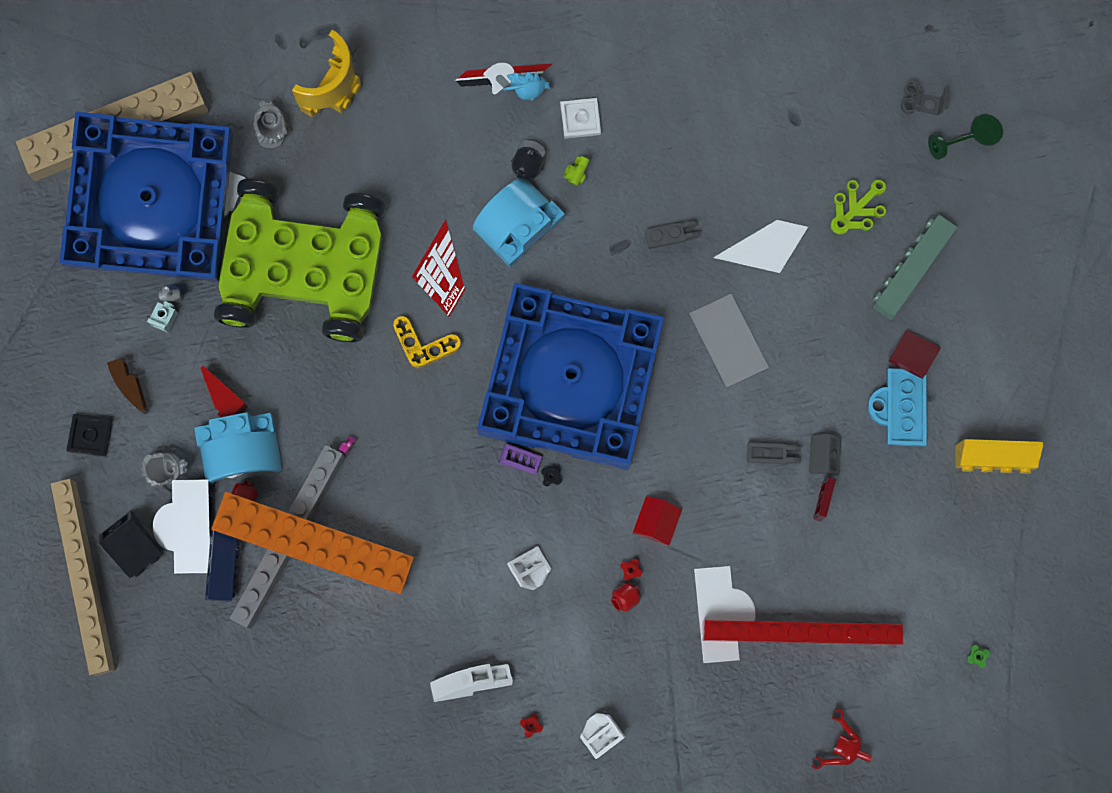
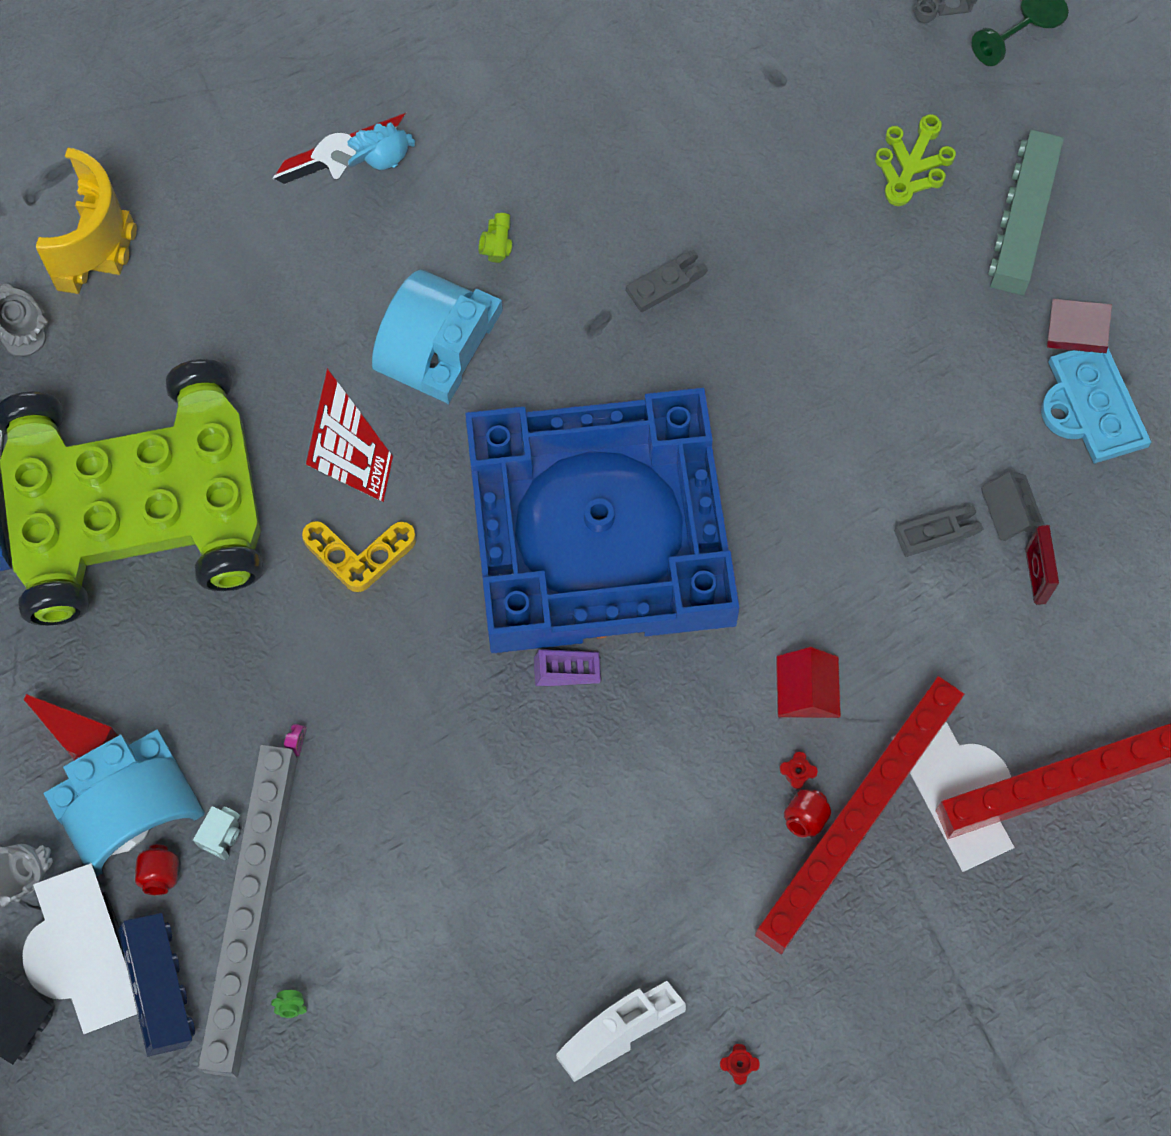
camera: 20 degrees left, 10 degrees down
(285, 485) = (218, 831): none -> light aqua brick
(292, 599) = (289, 1004): none -> bright green plate
(312, 543) = (291, 898): orange brick -> none
(528, 160) = (421, 244): black hair -> none
(530, 569) = (646, 823): white slope -> none
(551, 471) = (625, 667): black plate -> none
(580, 118) = (474, 170): white tile -> none
(601, 734) = (854, 1036): white slope -> none
(656, 608) = (859, 816): none -> red brick
(728, 340) = (807, 398): light grey sticker -> none
(766, 248) = (809, 255): white sticker -> none

